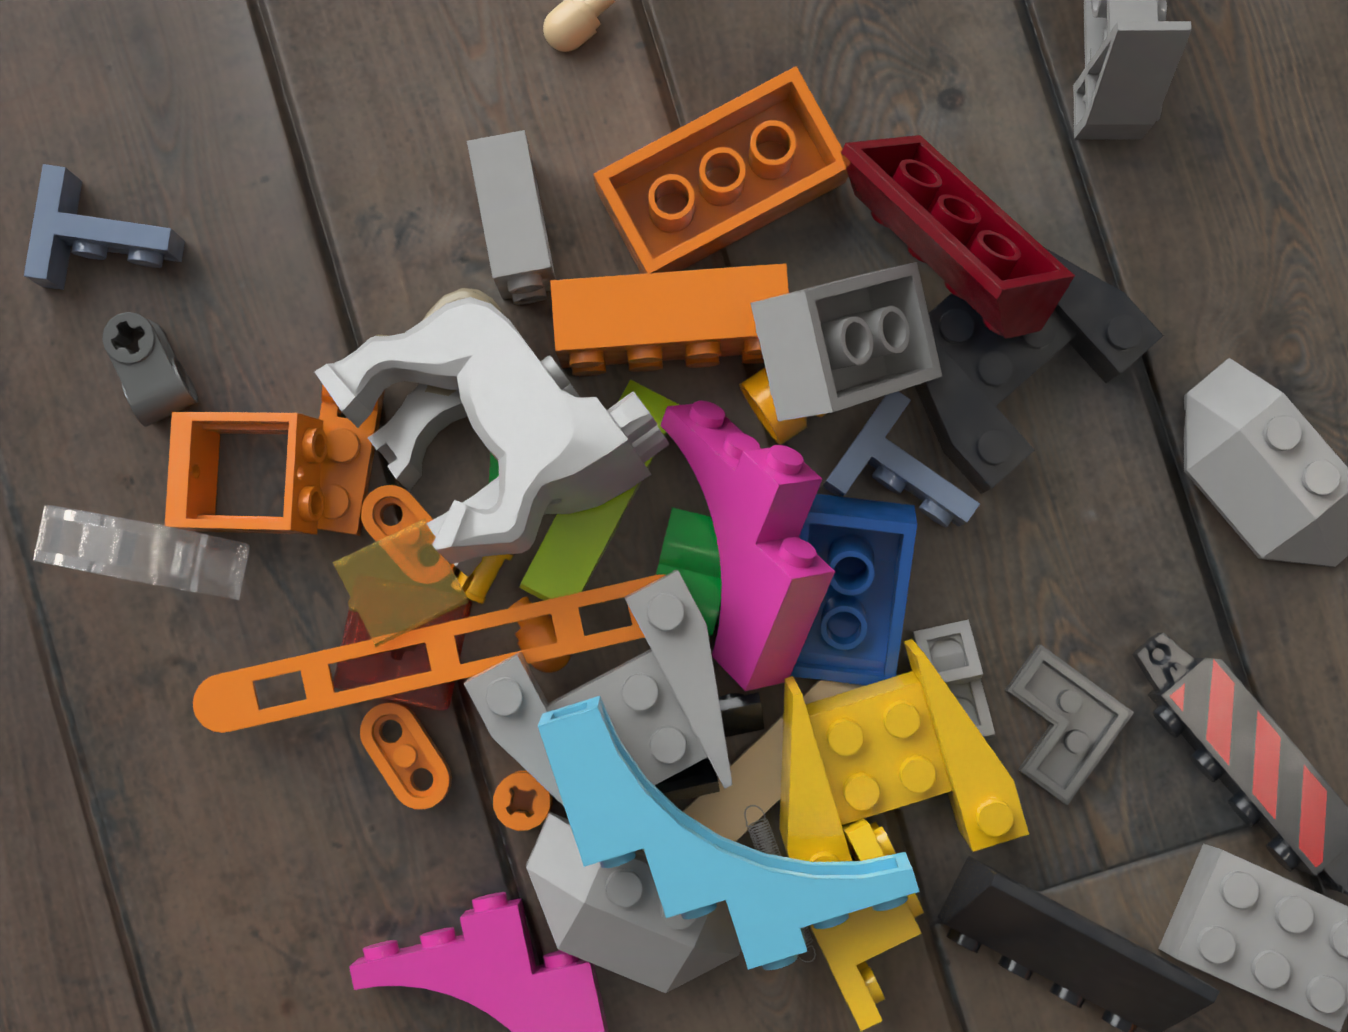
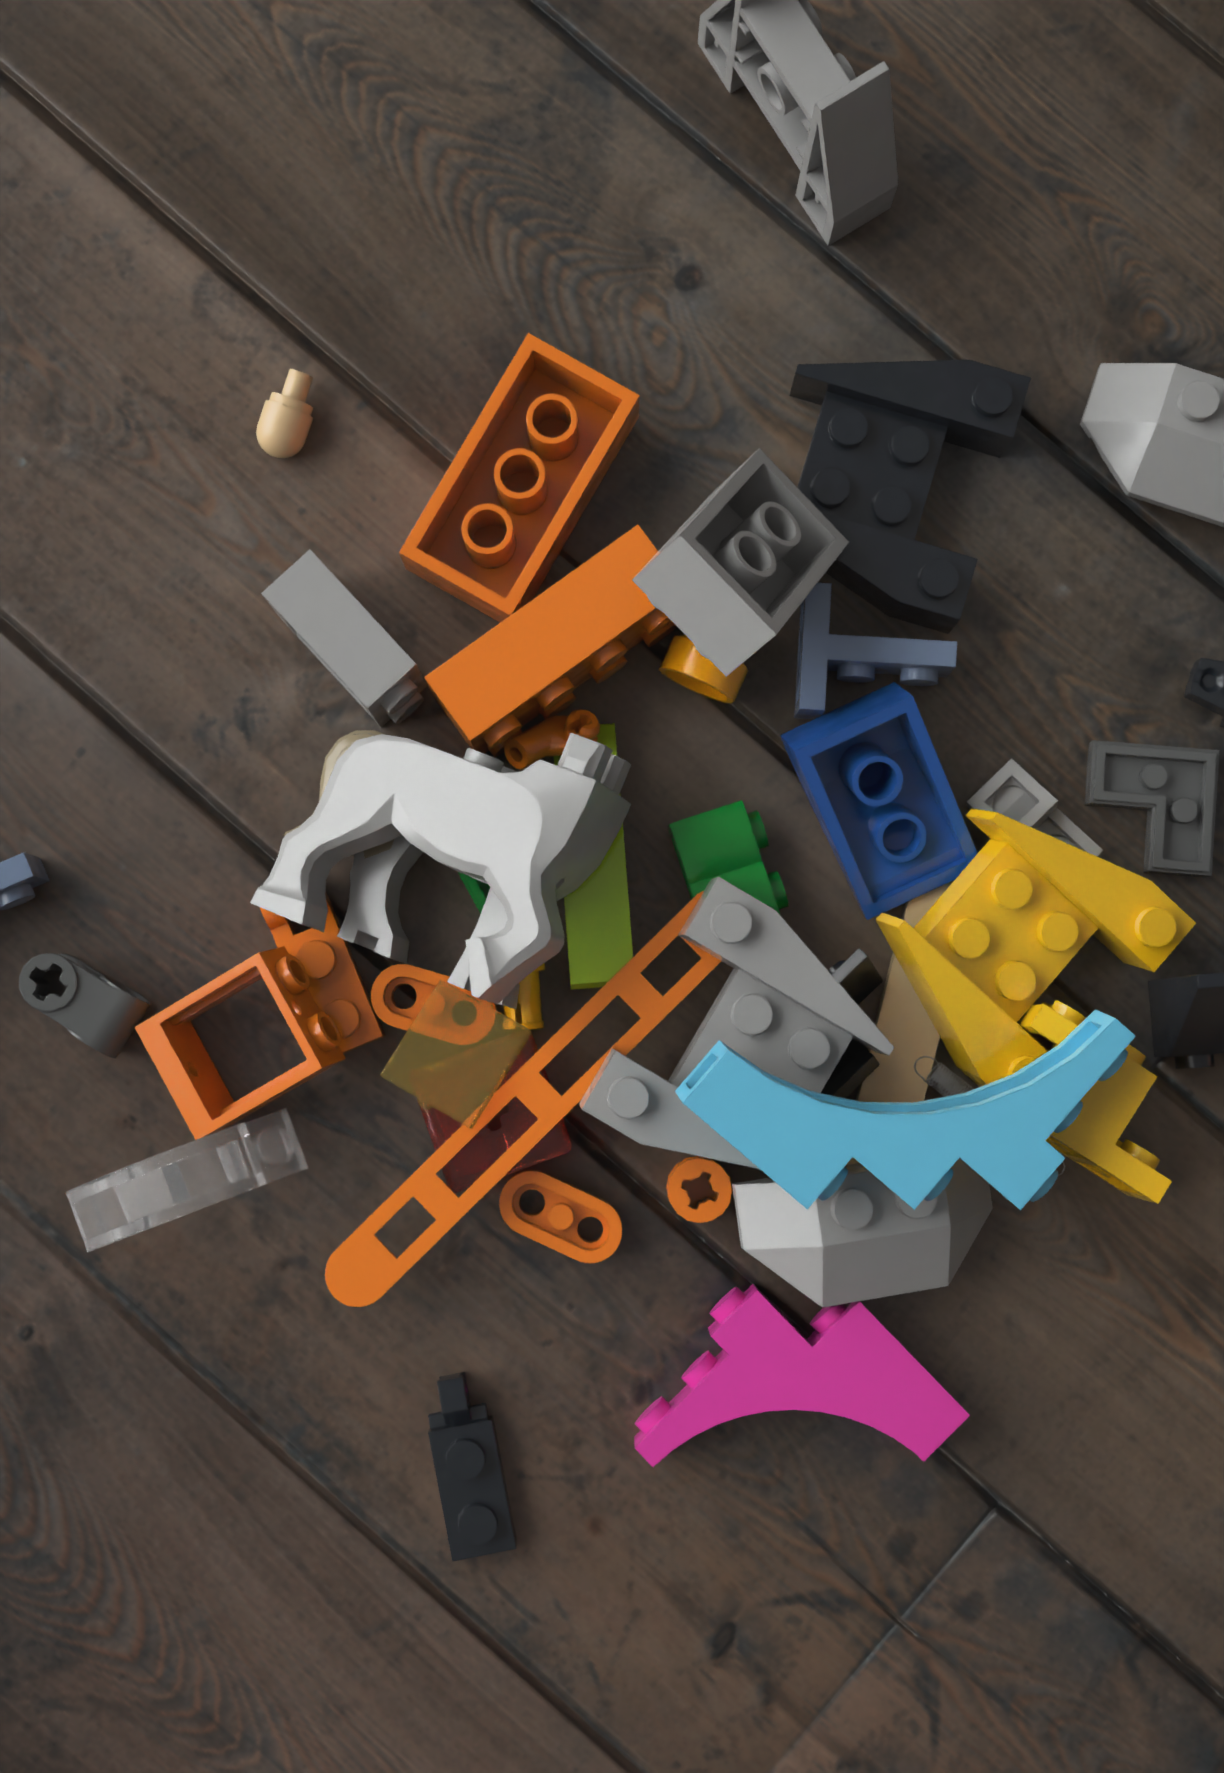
camera: 30 degrees left, 0 degrees up
(216, 907) = (469, 1473): none -> black hinge
(536, 633) = (615, 1022): orange cylinder -> none
(619, 383) = (550, 737): none -> orange arm
(767, 571) = (755, 776): dark pink arch -> none
(958, 232) = (780, 397): dark red slope -> none

